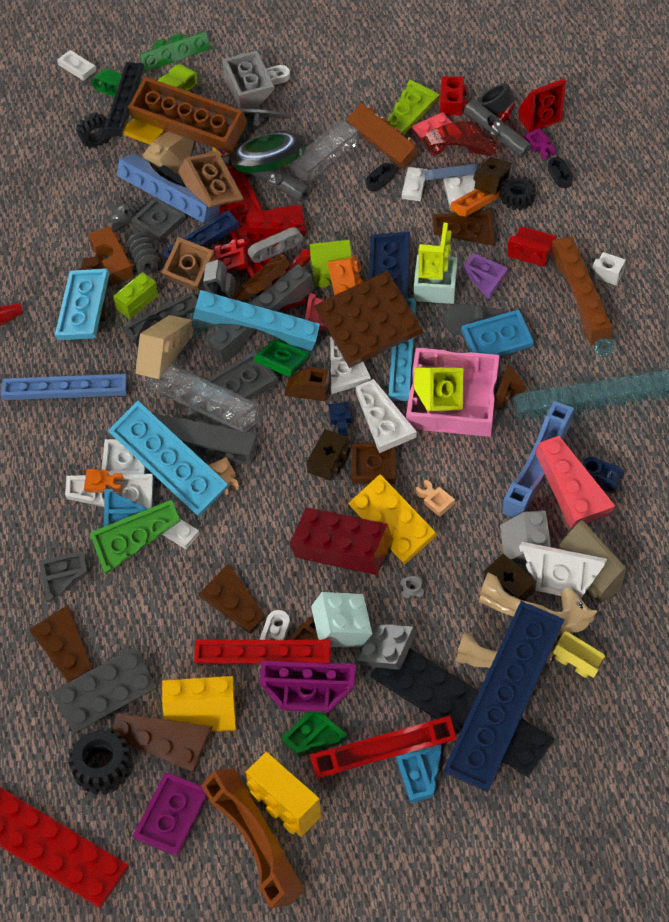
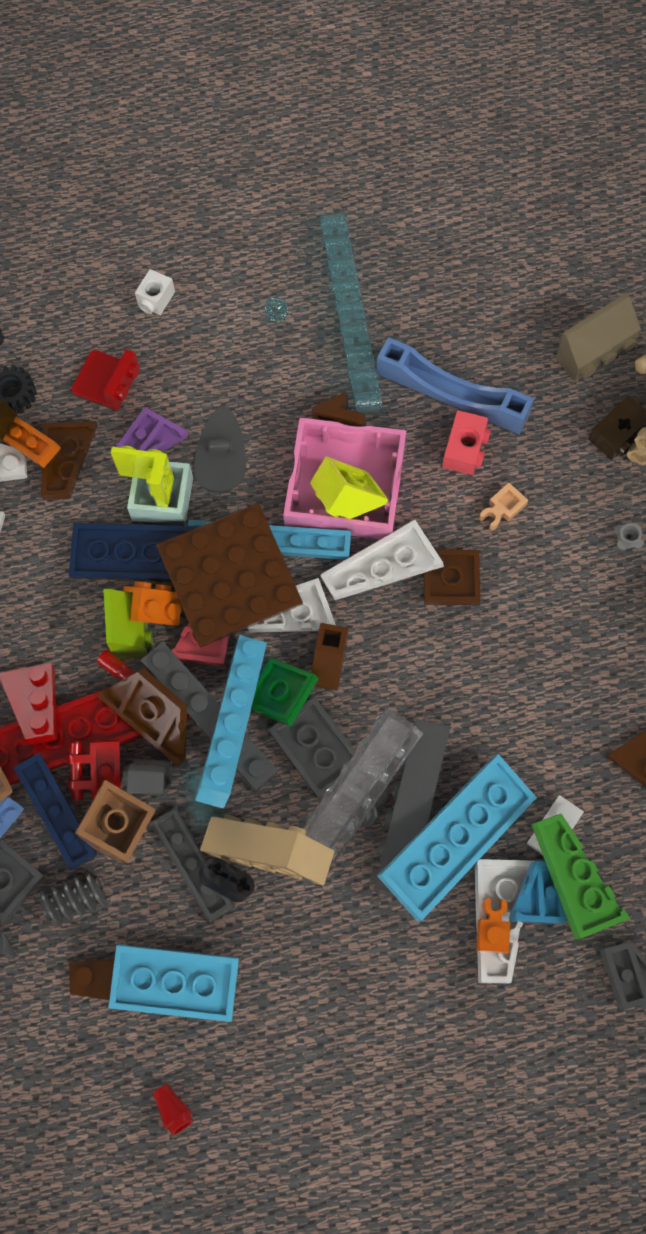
camera: 90 degrees left, 15 degrees up
(64, 387) = (317, 1005): medium blue plate -> none
(107, 243) = (46, 956): dark orange arch -> none
(119, 460) = (455, 912): white plate -> none
(136, 295) = (155, 904): lime brick -> none
(226, 472) = (463, 767): light nougat plate -> none
(264, 249) = (85, 700): light grey beam -> none
(328, 454) = (451, 641): dark brown brick -> none
(339, 416) = (371, 618): dark blue plate -> none
(341, 541) = (581, 611): dark red brick -> none
(385, 505) = (537, 555): yellow plate -> none
(483, 463) = (466, 428): none -> coral brick
(498, 334) = (255, 426): dark azure plate -> none
(525, 527) = (561, 407): light grey slope -> none
(560, 569) = (616, 366): white wing -> none
(572, 484) = (494, 350): coral wedge -> none
(591, 311) = (232, 313): dark orange arch -> none
(603, 473) = (468, 322): dark blue piece -> none

